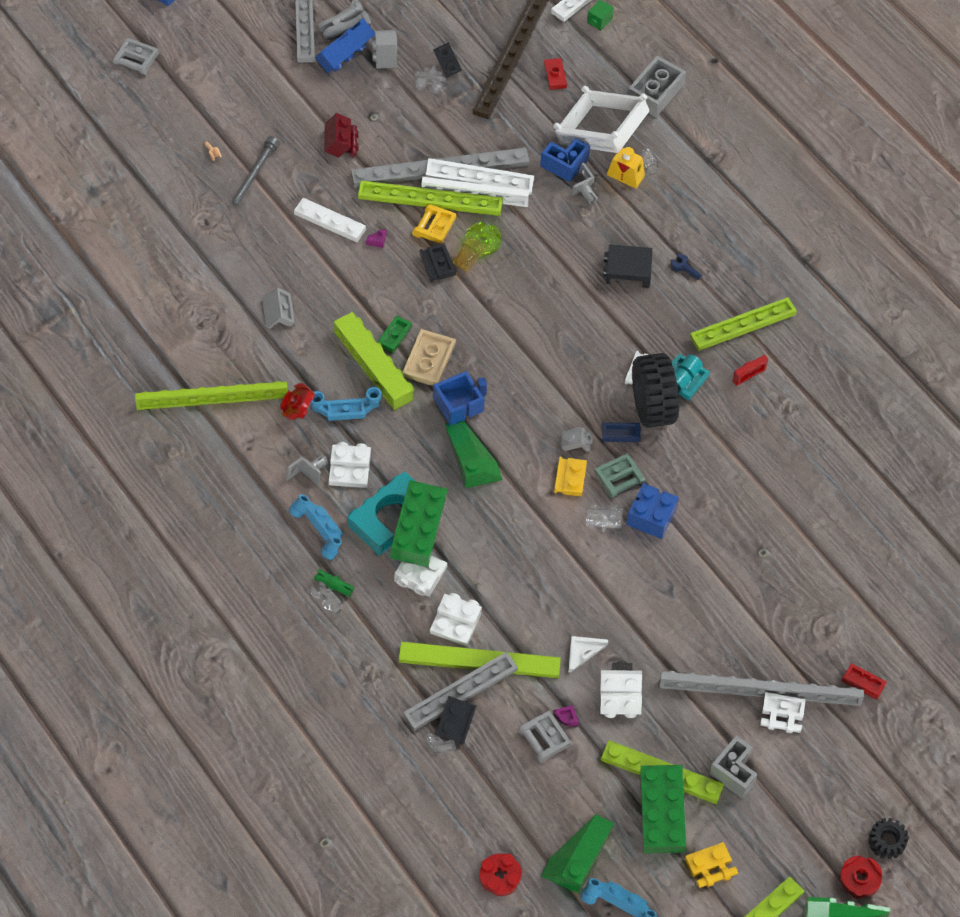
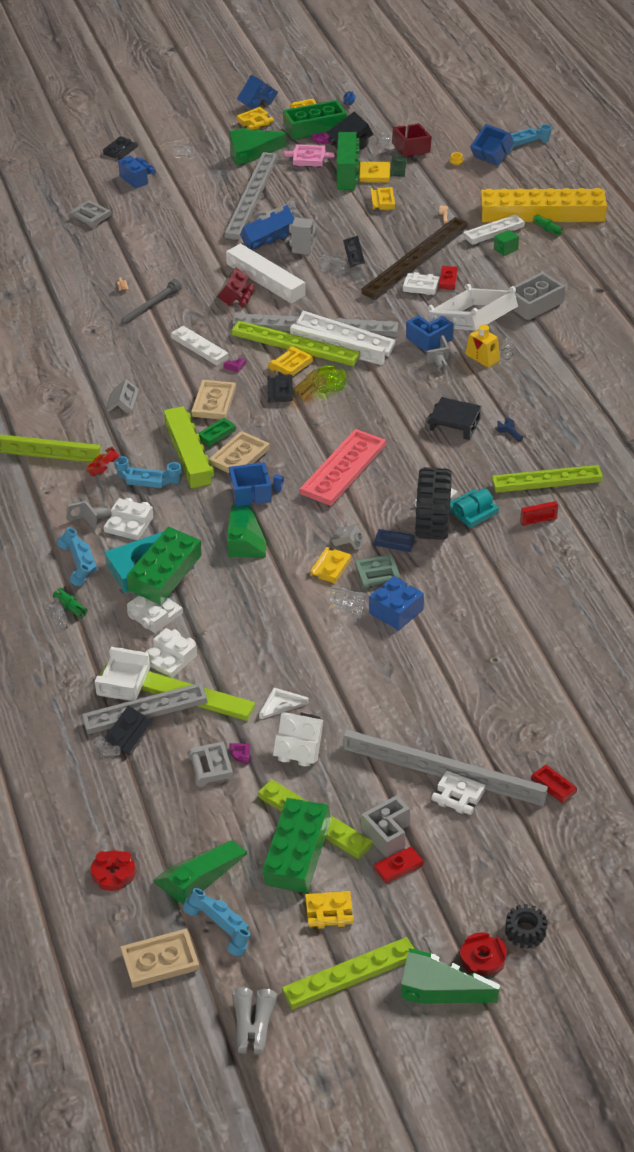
camera: 20 degrees right, 15 degrees down
(363, 107) = (266, 273): none -> white brick
(375, 292) = (213, 399): none -> tan plate
(425, 658) = (123, 674): none -> white panel
(530, 88) = (421, 283): none -> white plate
(539, 352) = (342, 467): none -> coral plate
(755, 802) = (398, 864): none -> red plate

